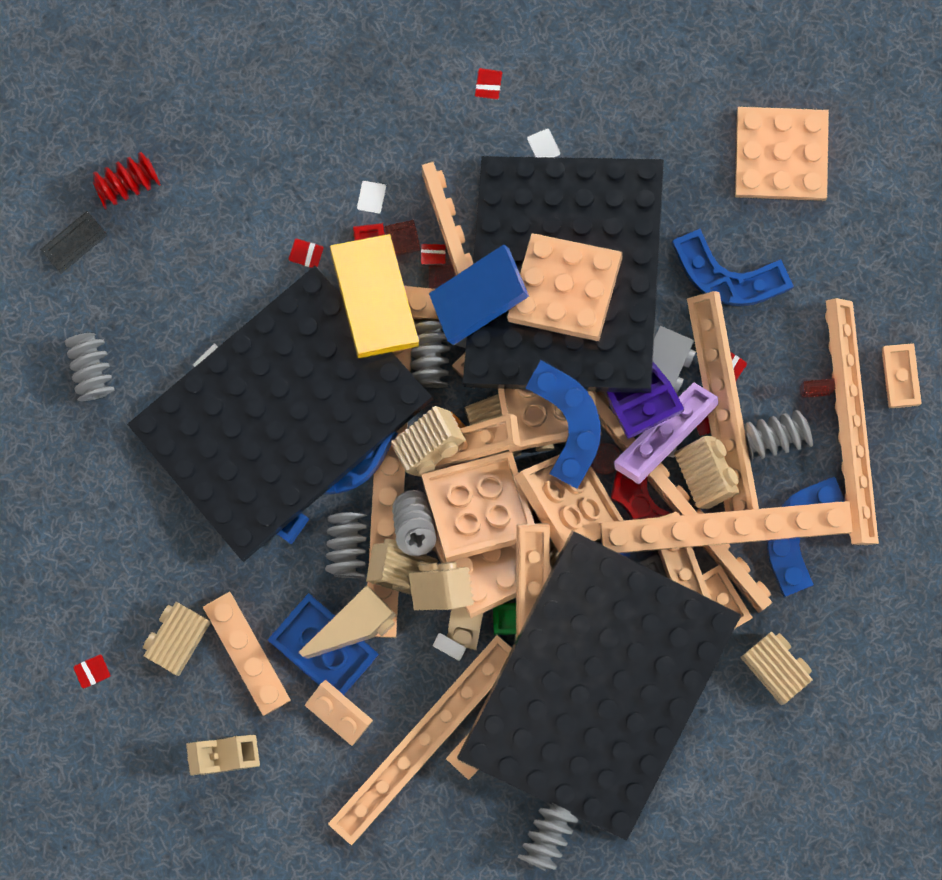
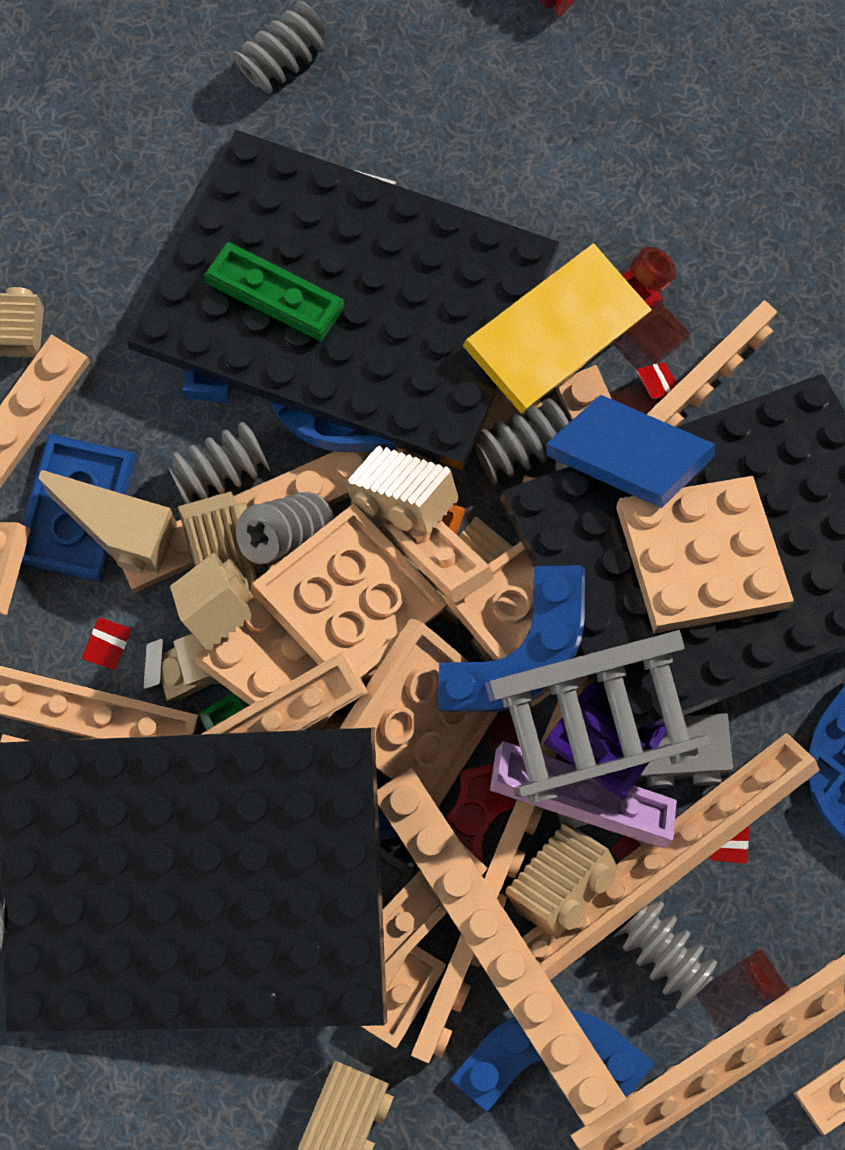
camera: 65 degrees right, 5 degrees down
(259, 453) = (274, 291): none -> green tile
(306, 253) = (571, 230): red sticker -> none
(361, 218) = (653, 268): none -> clear red tile
(371, 197) = (692, 270): white sticker -> none
(419, 669) = (106, 643): none -> red sticker
(603, 407) = (563, 681): none -> light grey fence

